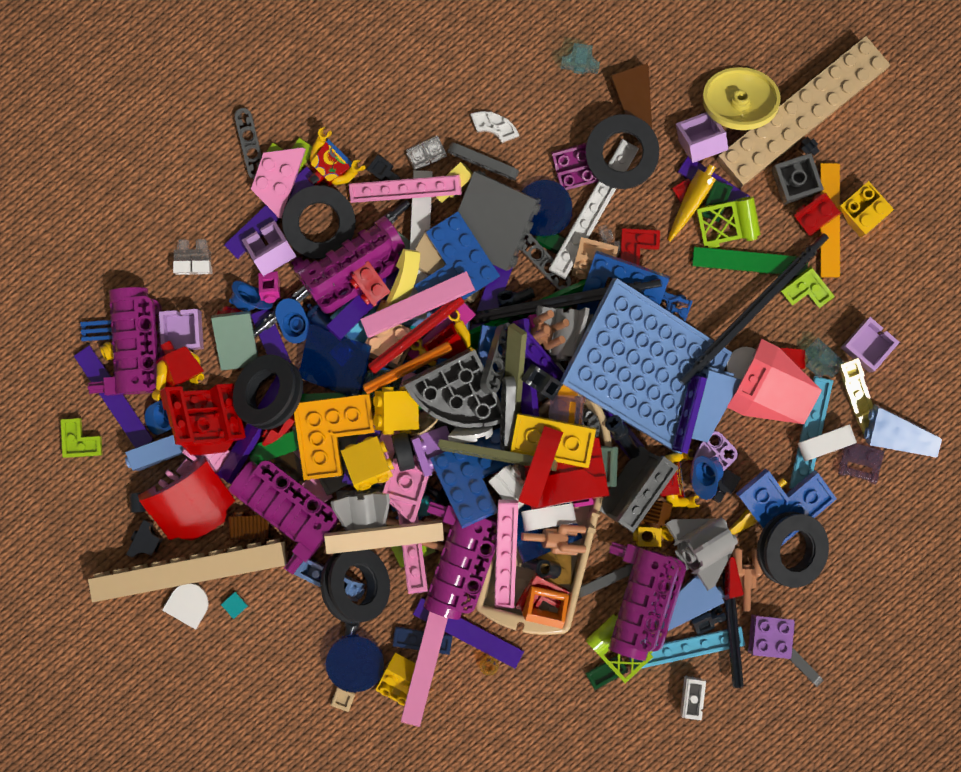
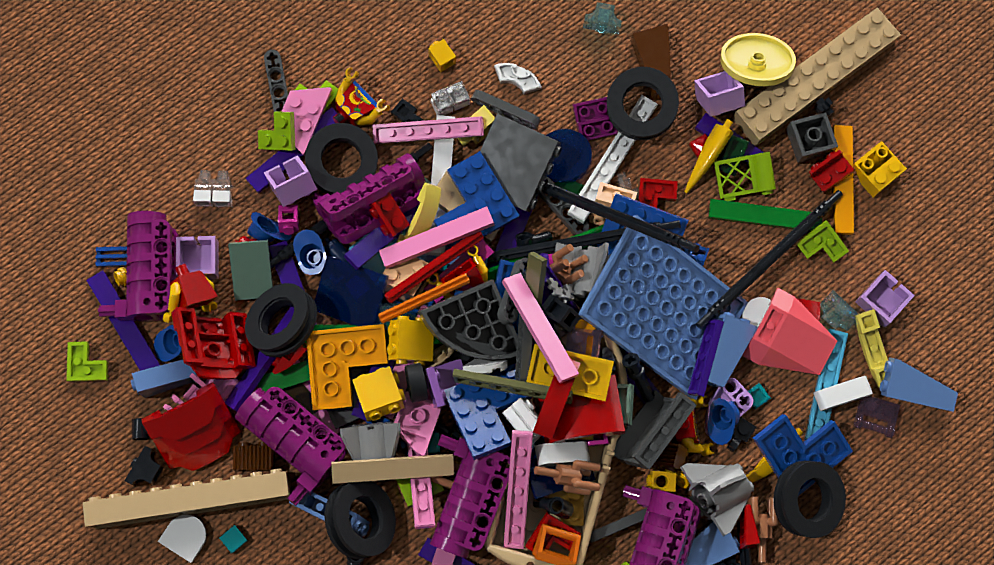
camera: 10 degrees left, 10 degrees down
(257, 201) = (282, 136): none -> lime plate
(416, 106) = (441, 55): none -> yellow brick
(522, 399) = (540, 328): none -> bright pink tile
(541, 360) = (563, 294): none -> light grey animal
(599, 281) = (620, 218): none -> black axle
(743, 446) = (759, 395): none -> teal tile

